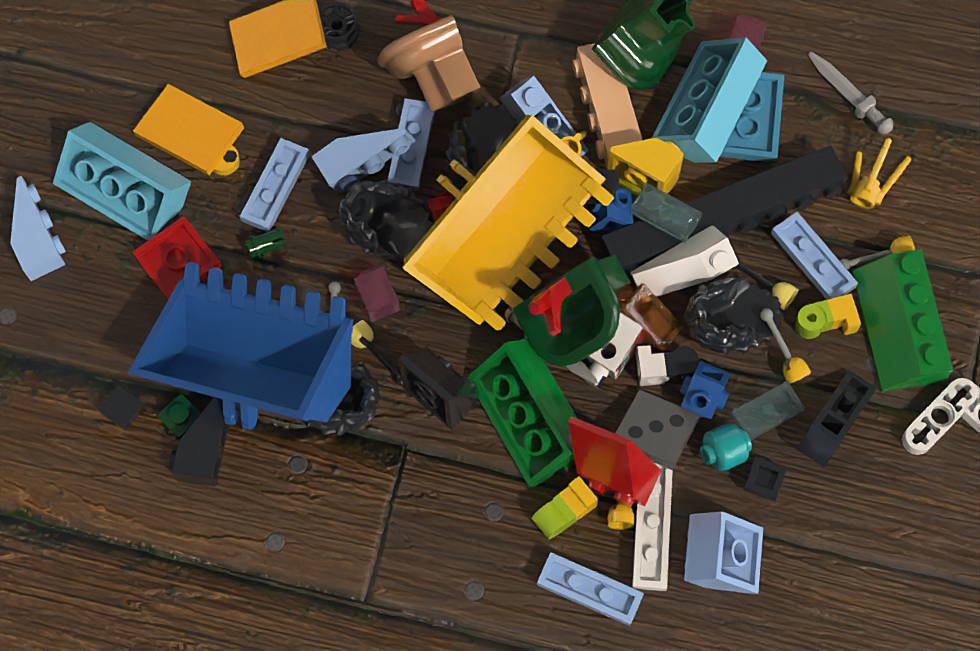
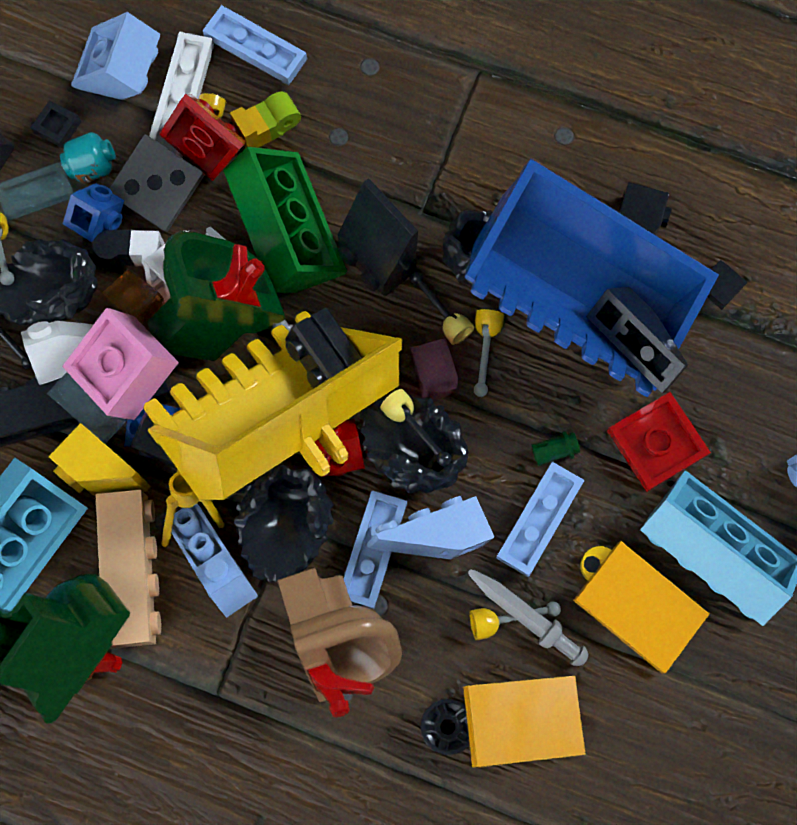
camera: 175 degrees left, 5 degrees up
(199, 320) = (638, 336): none -> black slope
(262, 100) = (548, 632): none -> light grey sword
(312, 102) = (486, 622): none -> yellow hinge
(399, 239) = (399, 408): none -> hinge
(471, 281) = (320, 347): none -> black brick
(641, 231) = (120, 364): none -> bright pink container

